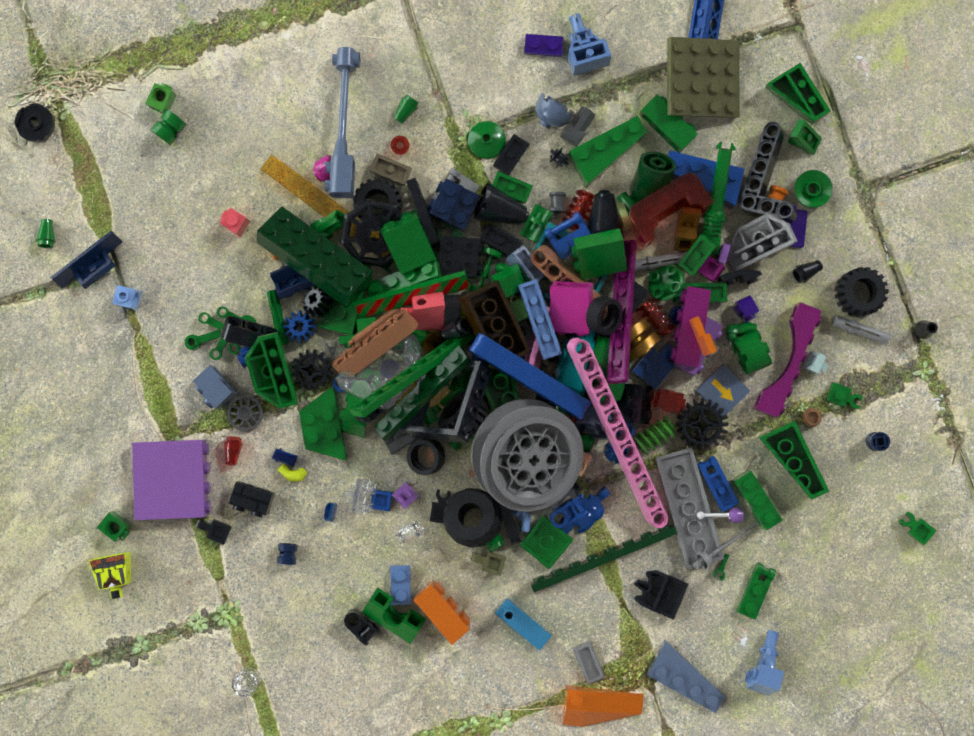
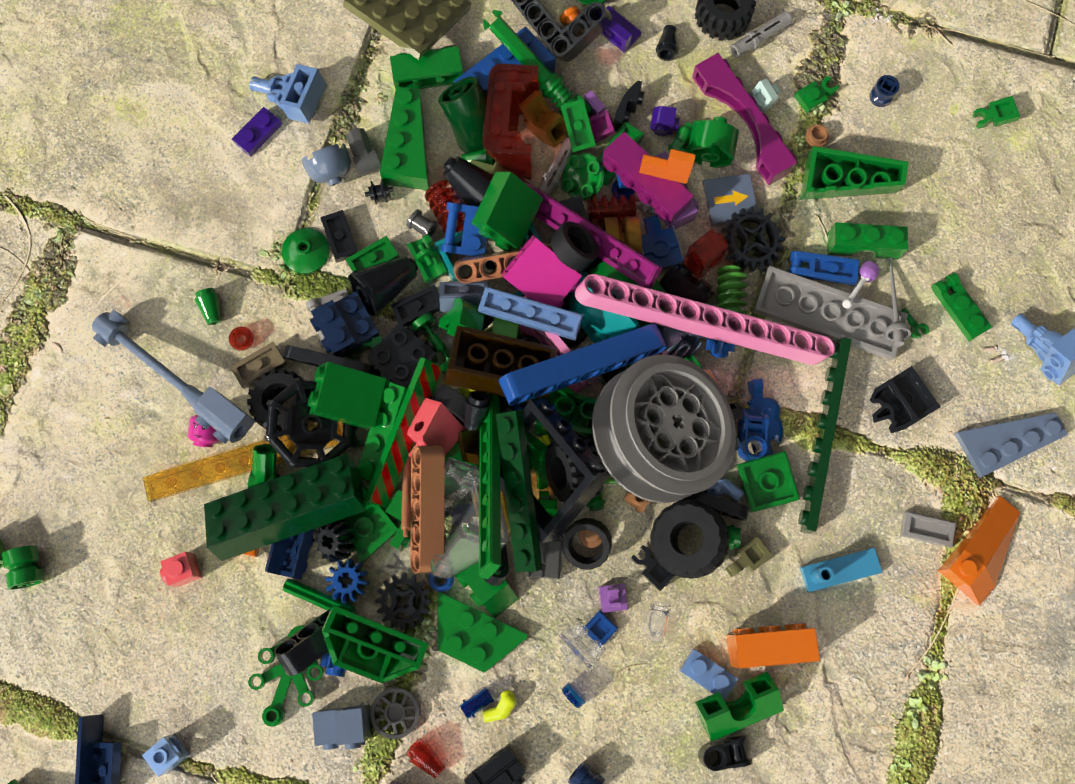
camera: 55 degrees left, 10 degrees down
(759, 240) = (607, 57): light grey wedge -> none

